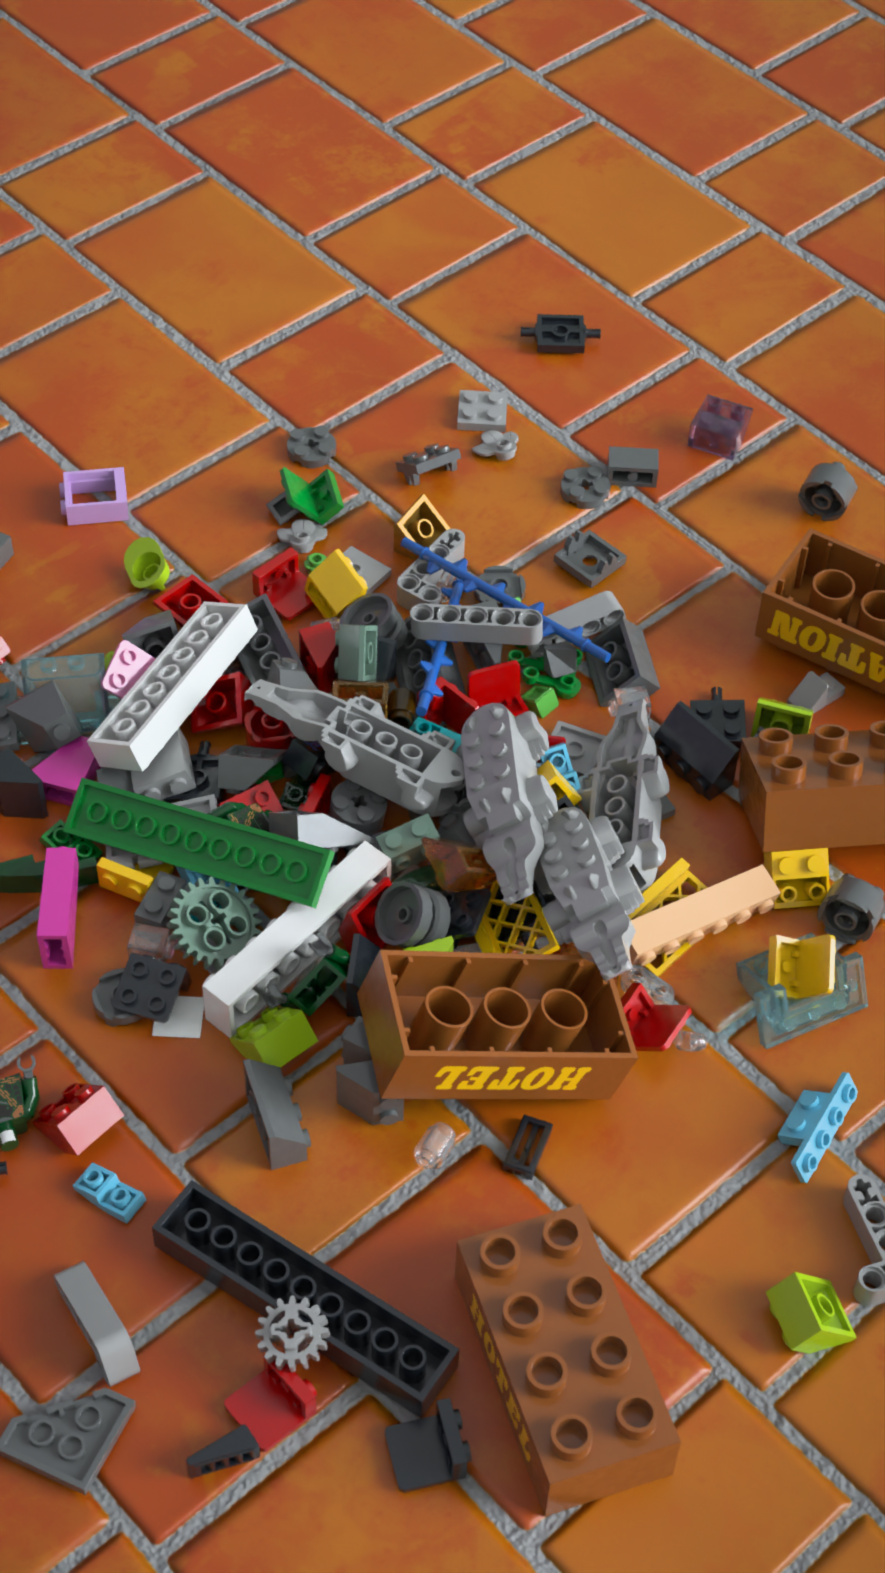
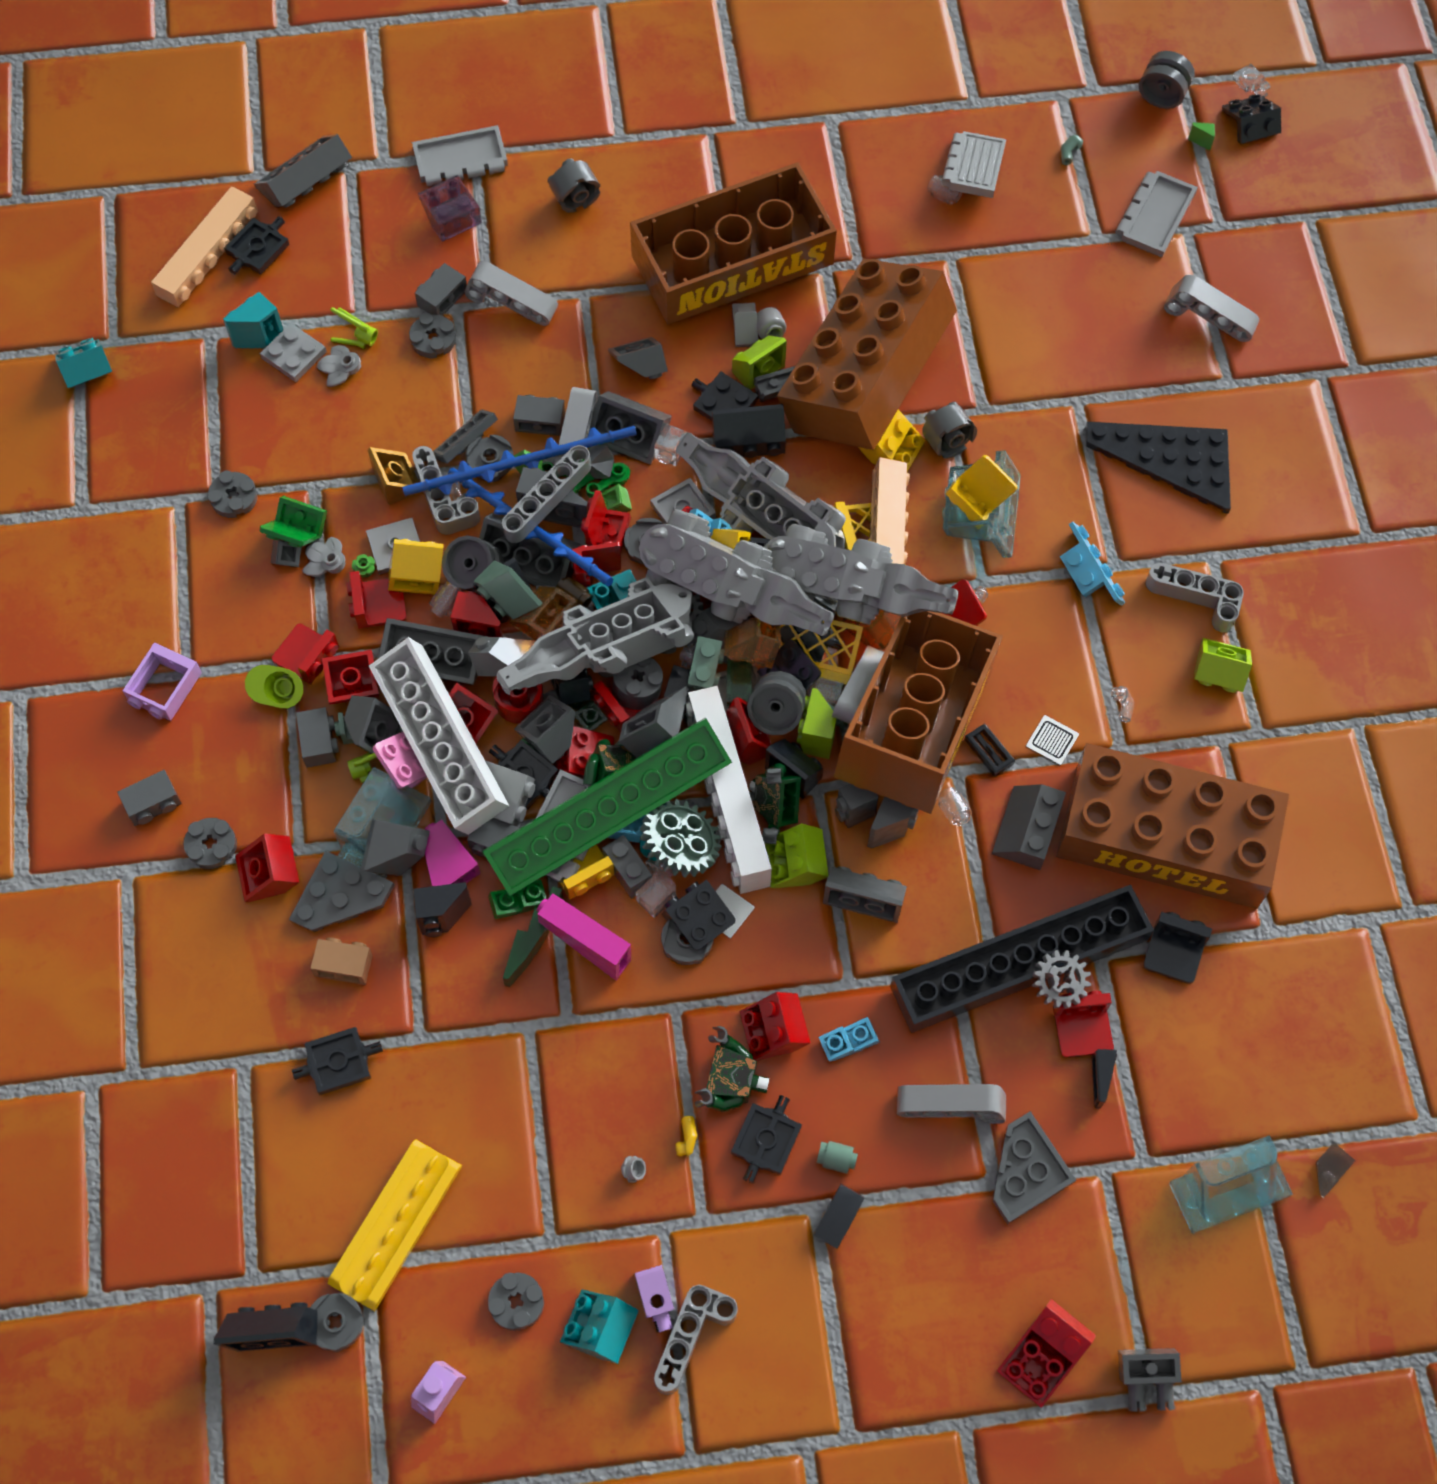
camera: 55 degrees left, 15 degrees up
(118, 617) = (316, 737): none -> dark grey brick
(205, 565) = (304, 652): none -> red bracket
(348, 292) = (82, 362): none -> teal slope
(431, 458) = (329, 429): dark grey piece -> none
(447, 1223) = (1029, 824): none -> dark grey slope
(478, 364) = (253, 323): none -> teal slope
(494, 558) = (458, 441): none -> dark grey plate
(523, 303) = (204, 247): none -> light nougat brick
(542, 443) = (364, 333): none -> lime plant
(567, 588) = (539, 415): none -> dark grey brick
(589, 546) = (498, 369): dark grey piece -> none
(593, 1195) = (1052, 739): none -> white sticker
(660, 320) = (304, 170): none -> dark grey slope
(669, 491) = (510, 292): none -> light grey beam
(687, 1244) = (1126, 700): none -> clear arm
(700, 636) = (642, 356): none -> dark grey slope
(785, 409) = (460, 154): none -> light grey hinge
(832, 708) = (770, 323): none -> light grey head

